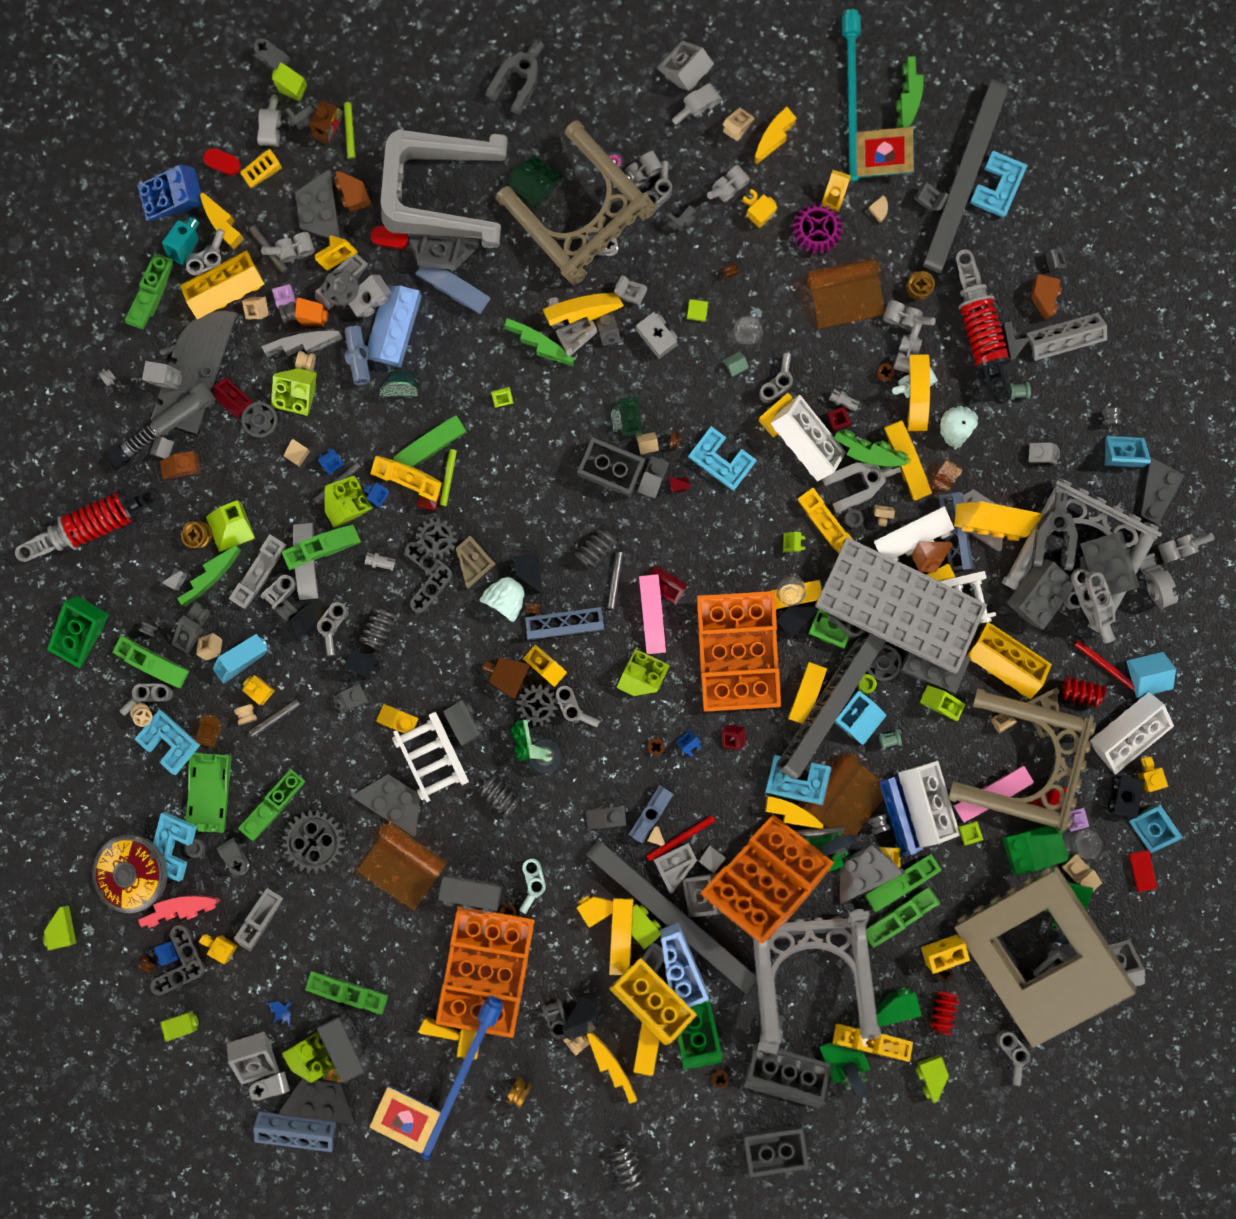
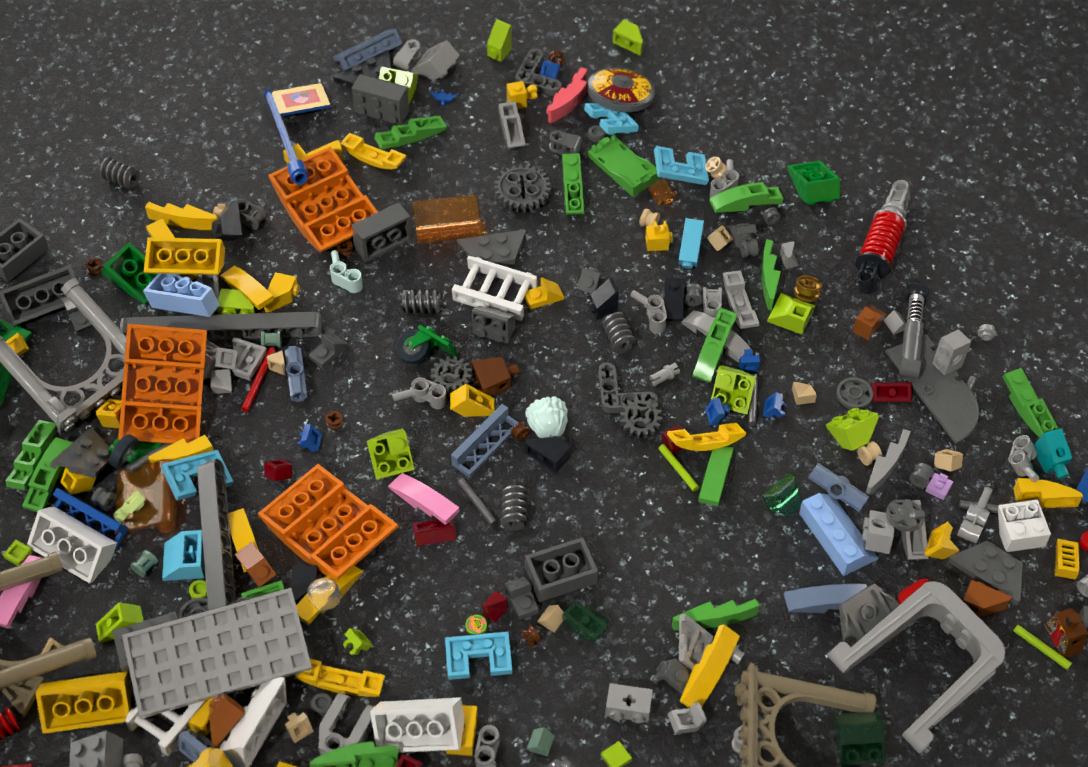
camera: 135 degrees right, 30 degrees down
(222, 285) = (989, 452): yellow slope -> none
(266, 212) = (1022, 526): none -> white slope
(275, 717) = (628, 236): flat silver bar -> none
(308, 514) = (748, 362): none -> blue tile
(310, 313) = (906, 482): orange slope -> none
(399, 996) = (373, 156): none -> yellow slope
(473, 561) = (598, 427): dark tan wing -> none
(502, 397) = (701, 555): lime slope -> none
(518, 1092) = (237, 156): pearl gold wheel -> none
(642, 866) = (271, 339): none -> sand green bush
(695, 871) = (225, 358): none -> light grey panel
(702, 484) = (476, 625): none -> tile
(815, 902) = (110, 413): none -> yellow slope
(818, 658) = (255, 564): none -> dark orange slope
(866, 792) = (134, 502): none -> yellowish green plate

